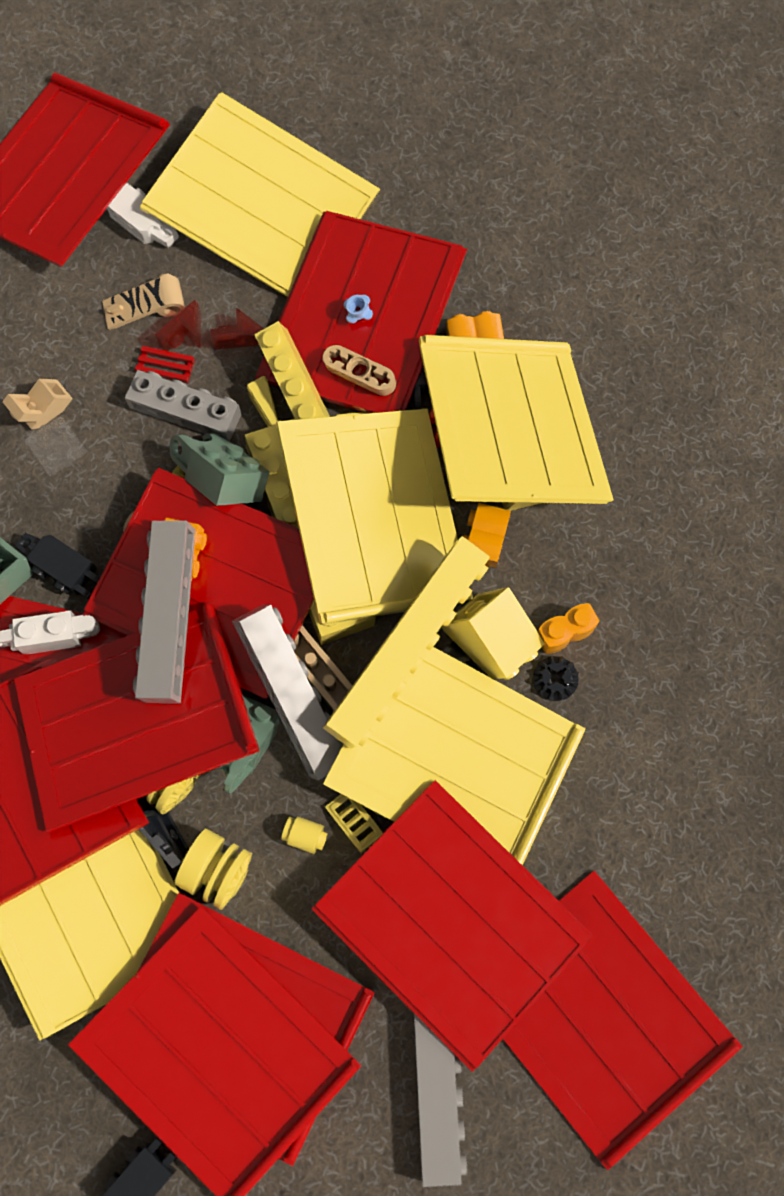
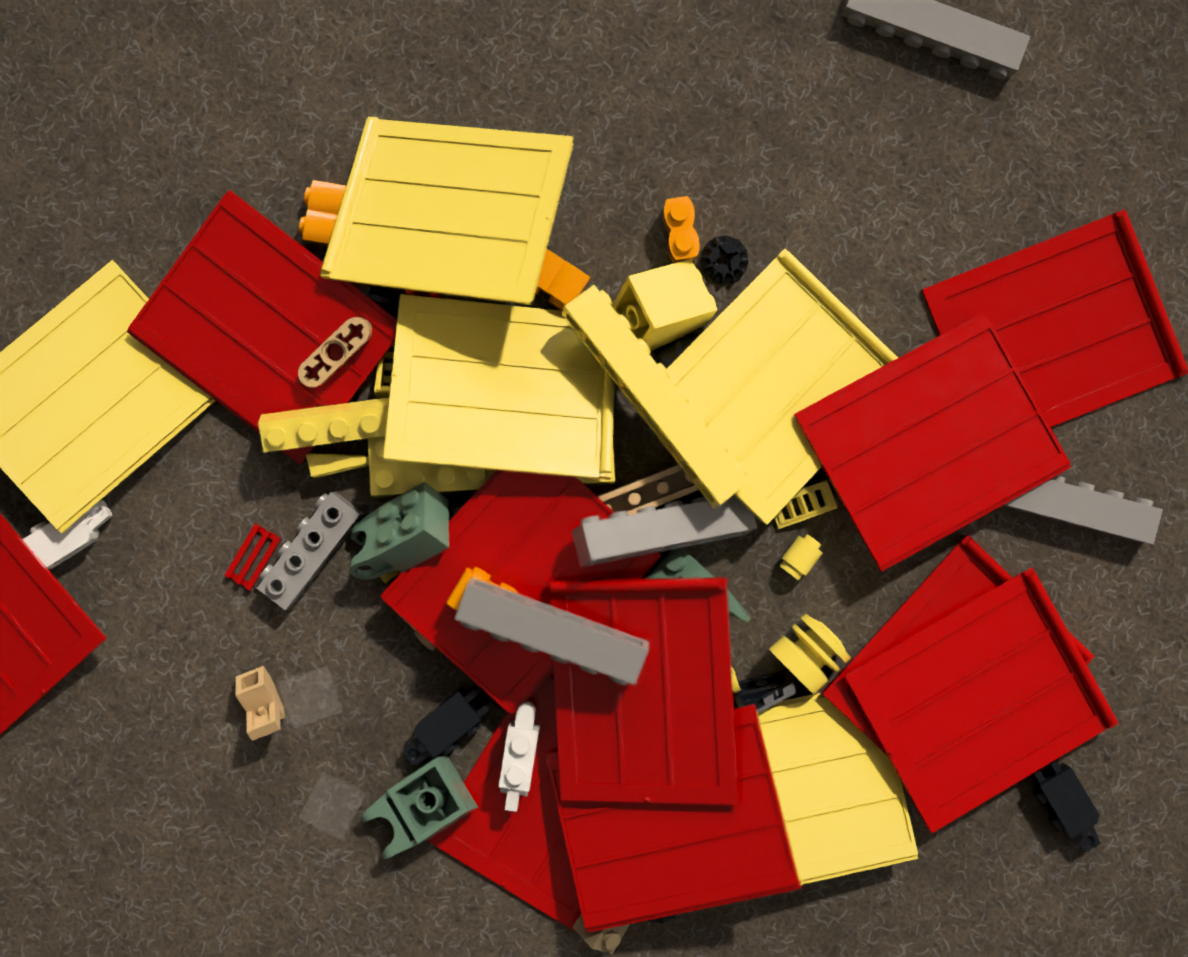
camera: 75 degrees left, 15 degrees up
(159, 296) = (172, 546): tan door -> none
(185, 323) = (213, 520): clear red slope -> none
(235, 337) = (247, 459): clear red slope -> none
(358, 301) = (256, 324): light blue plate -> none

